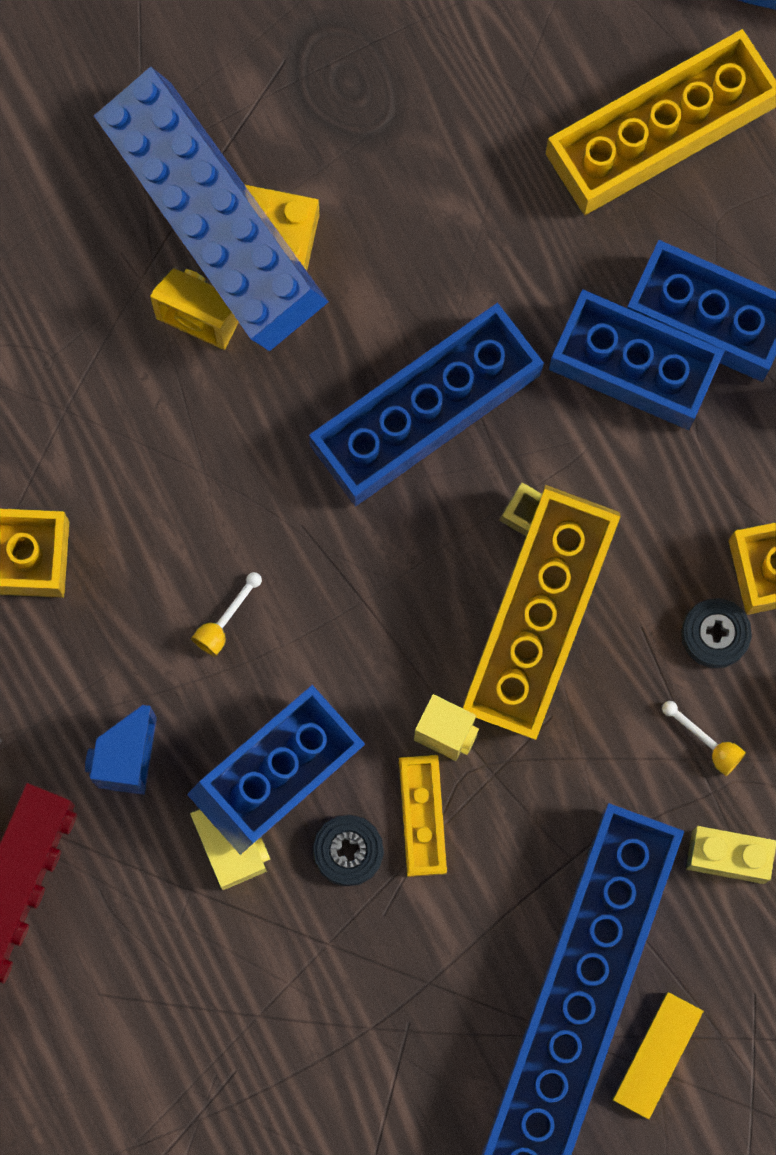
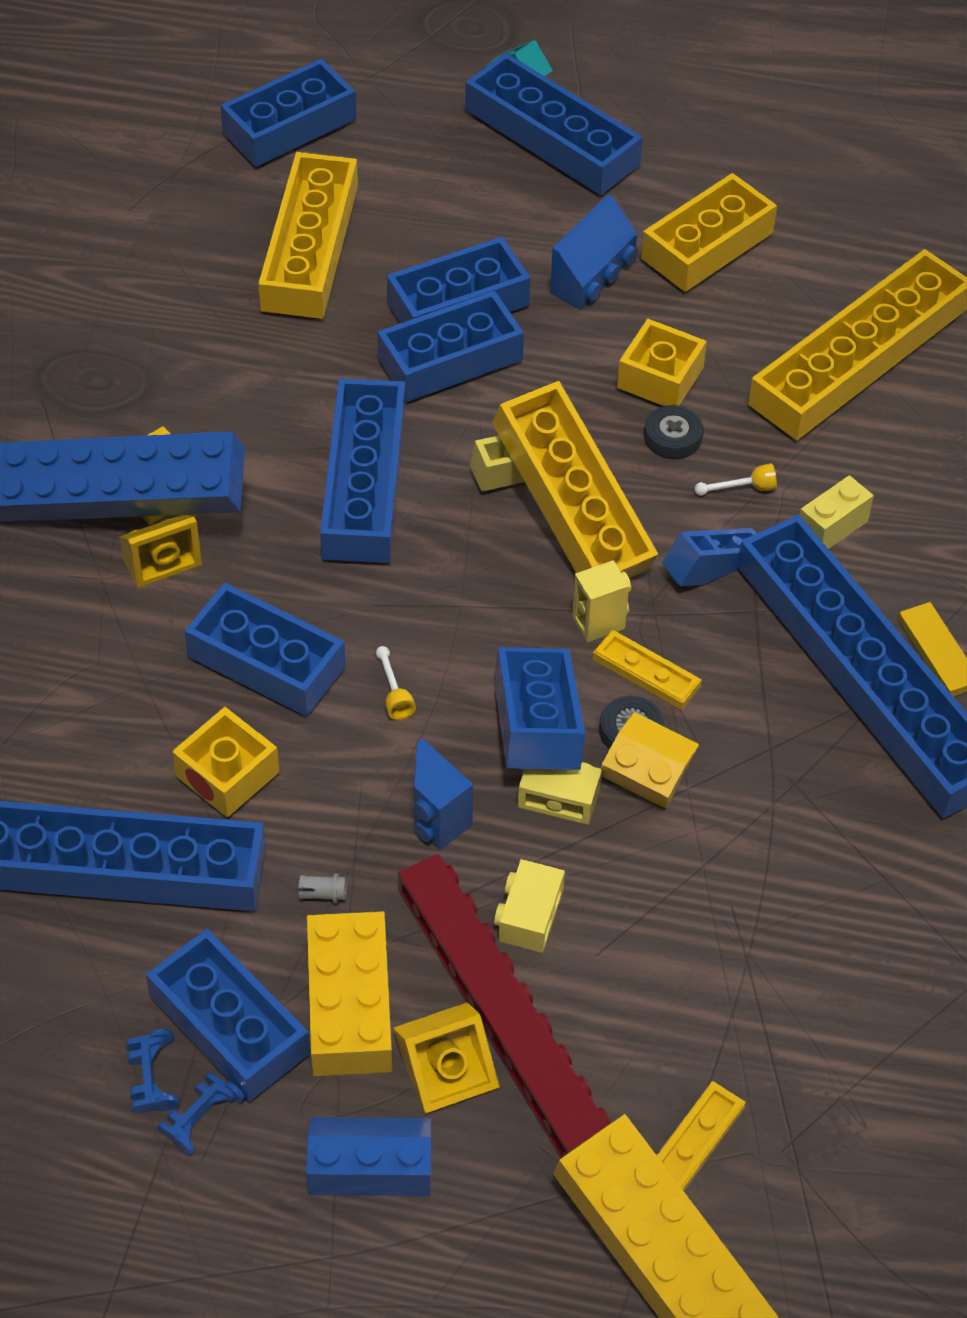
camera: 50 degrees left, 25 degrees down
(92, 909) = (530, 905): none -> light yellow brick
(163, 486) = (265, 649): none -> blue brick
(313, 898) = (648, 759): none -> yellow slope
(594, 779) = (704, 555): none -> blue slope

